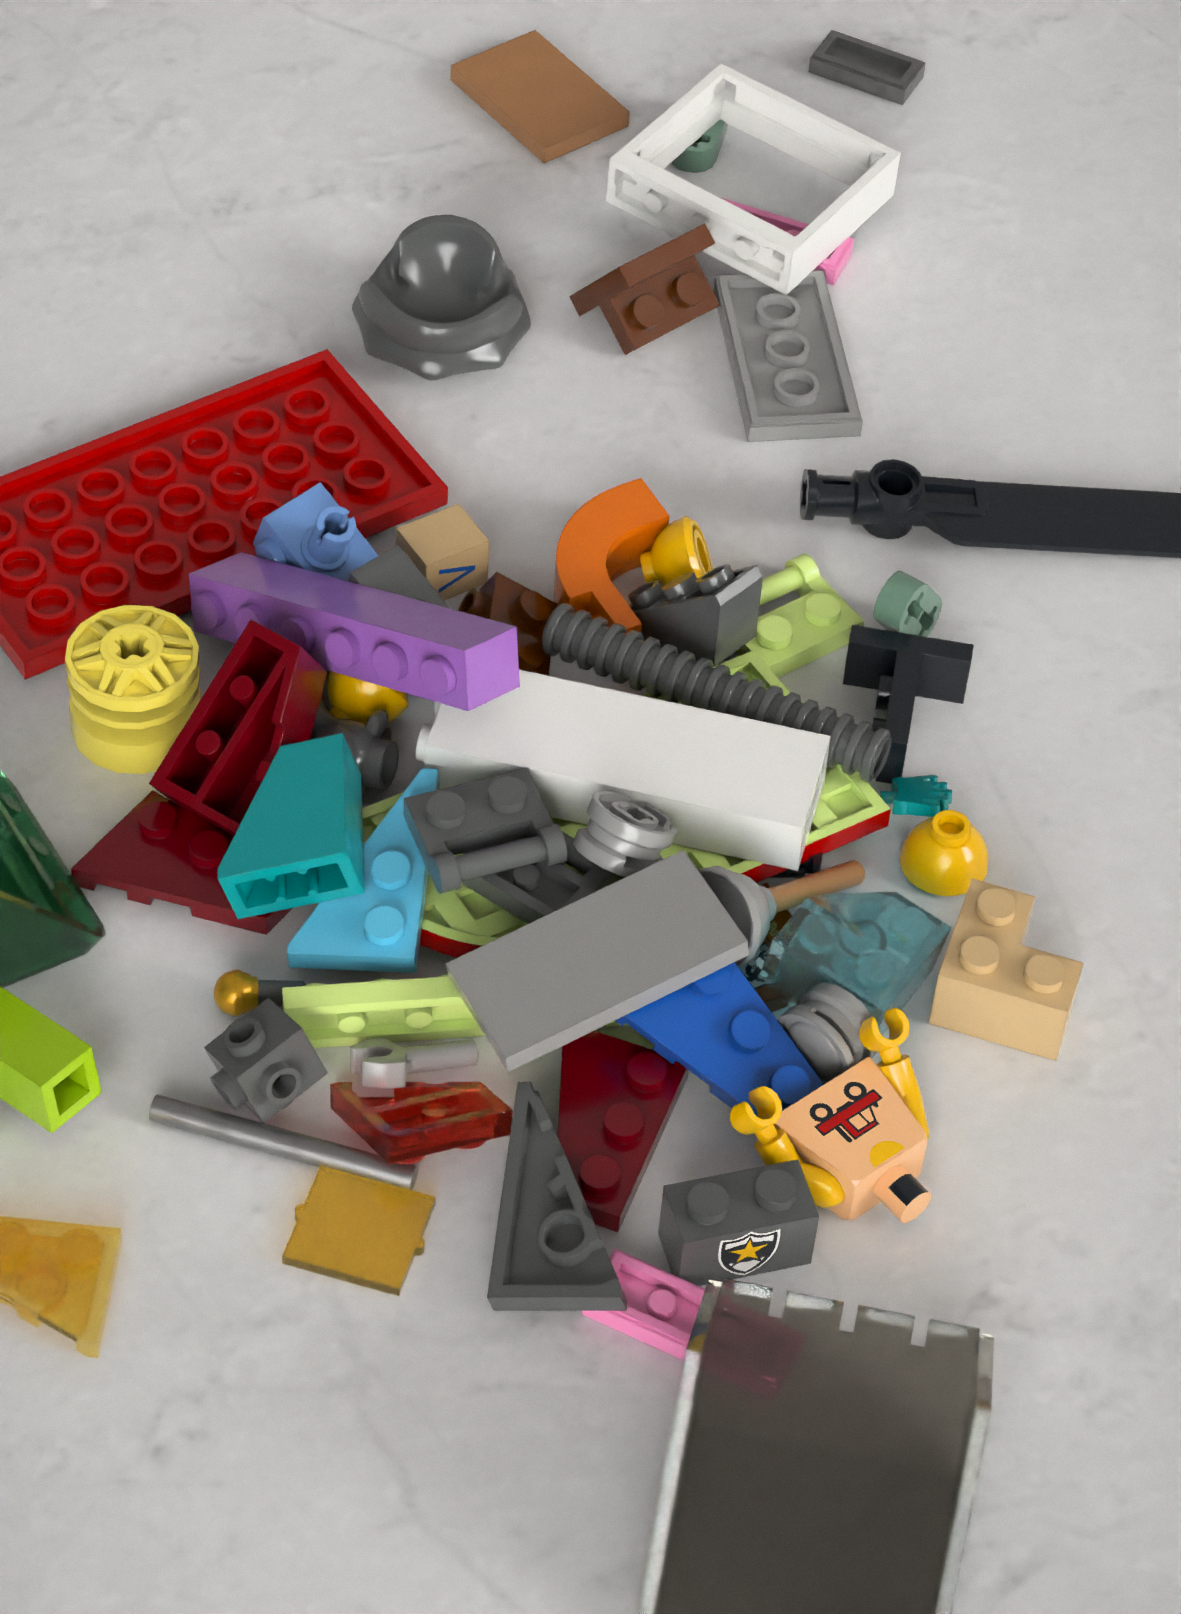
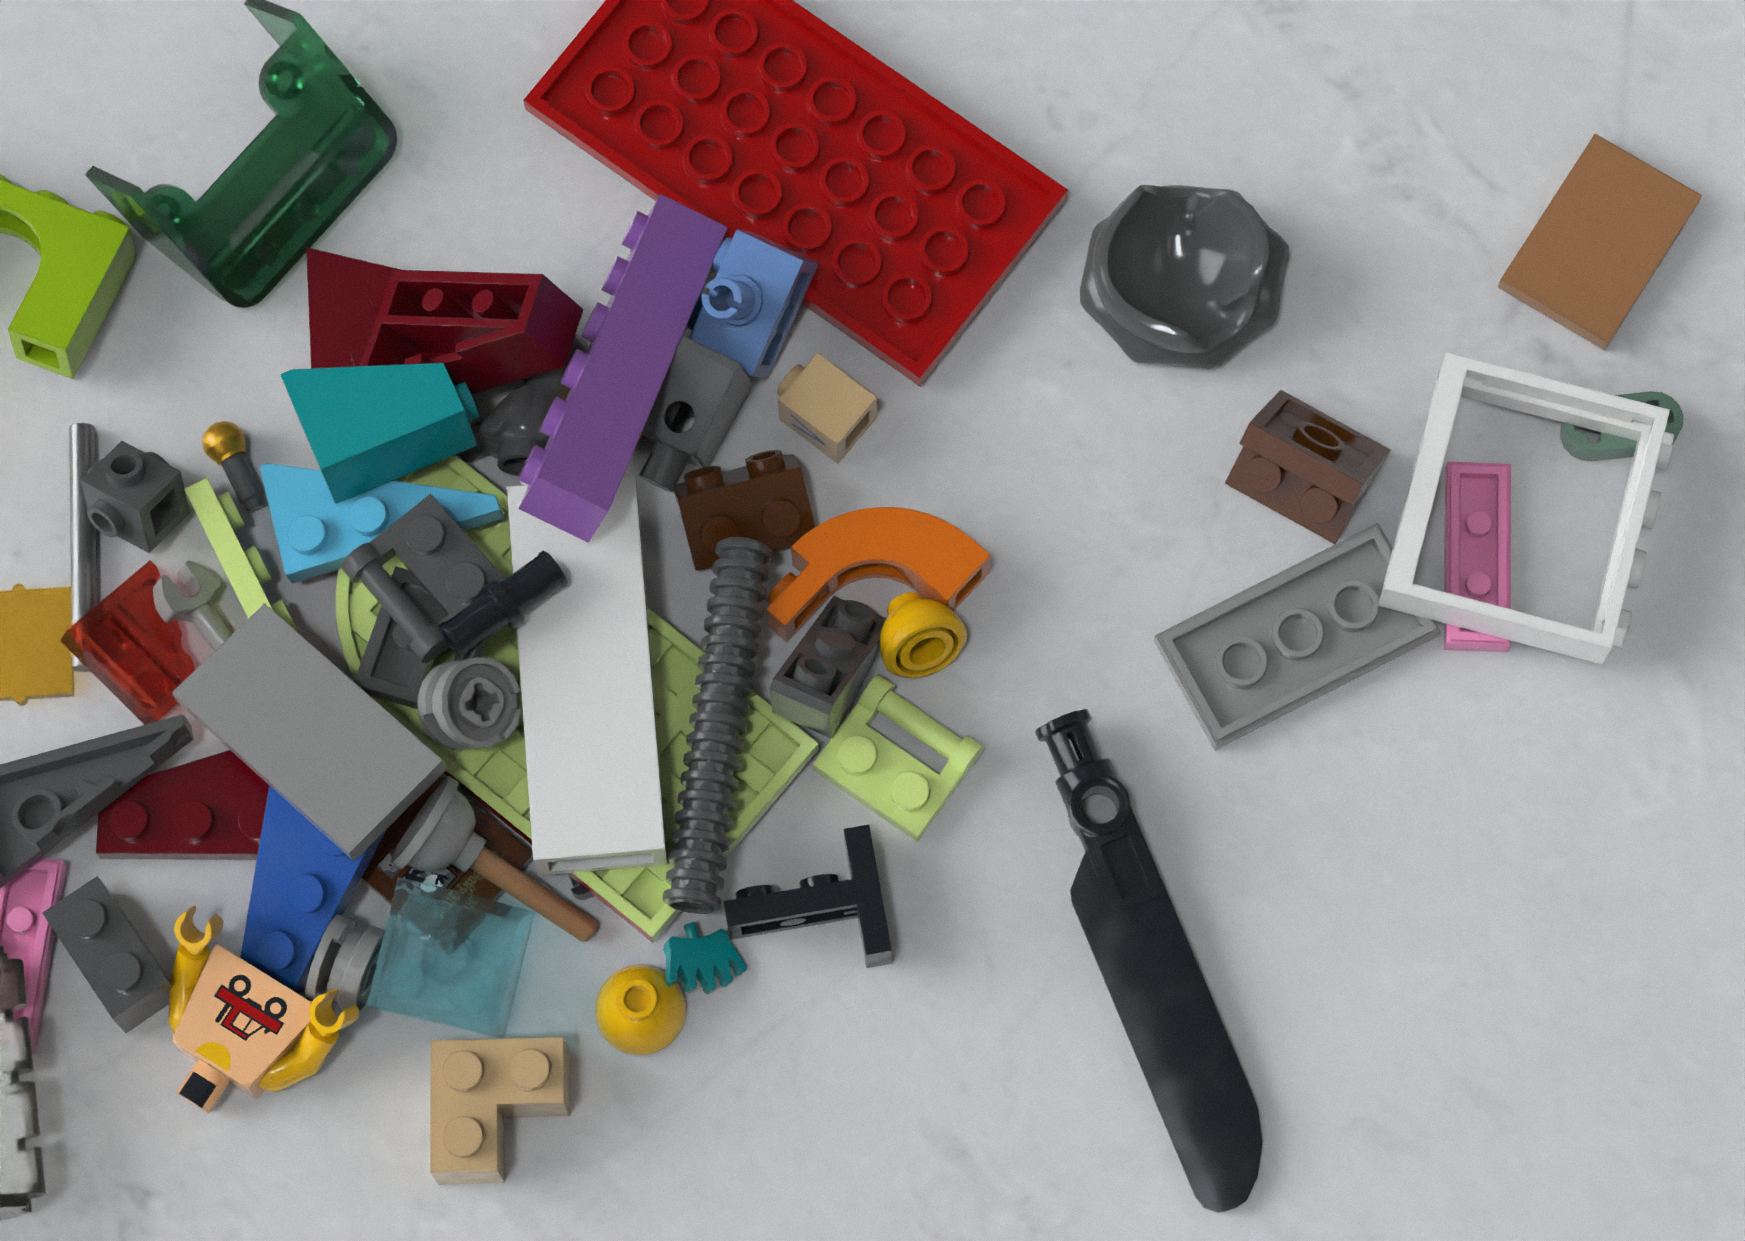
camera: 75 degrees right, 25 degrees up
(131, 686) = (536, 230): light yellow wheel -> none
(549, 764) = (503, 604): none -> black pin
(907, 605) = (924, 871): sand green beam -> none

